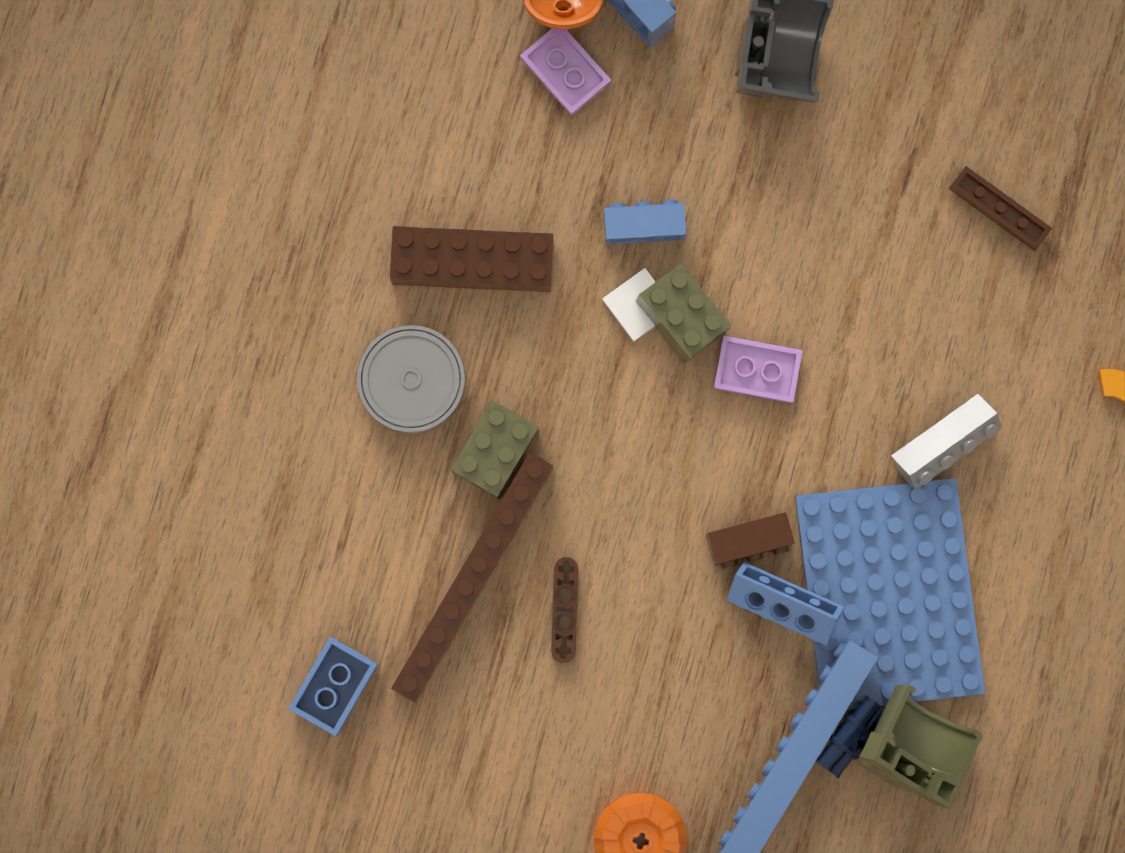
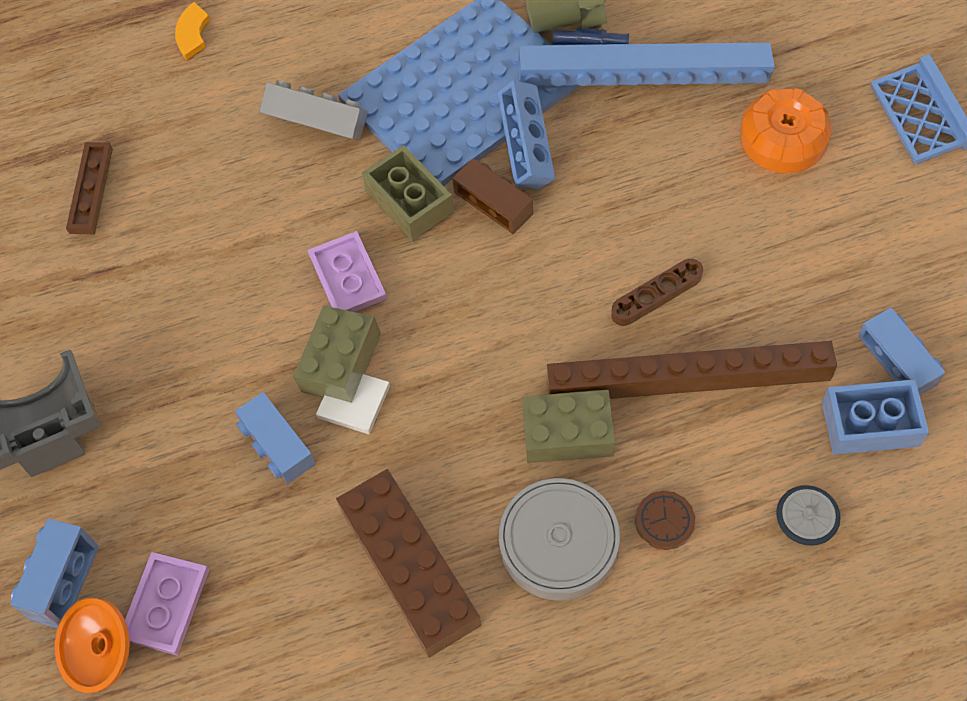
camera: 120 degrees left, 20 degrees down
(300, 578) = (808, 515): none -> light grey wheel
(371, 758) = (901, 351): none -> medium blue brick
(373, 471) = (665, 520): none -> reddish brown tile
(800, 466) = (408, 192): none -> olive brick

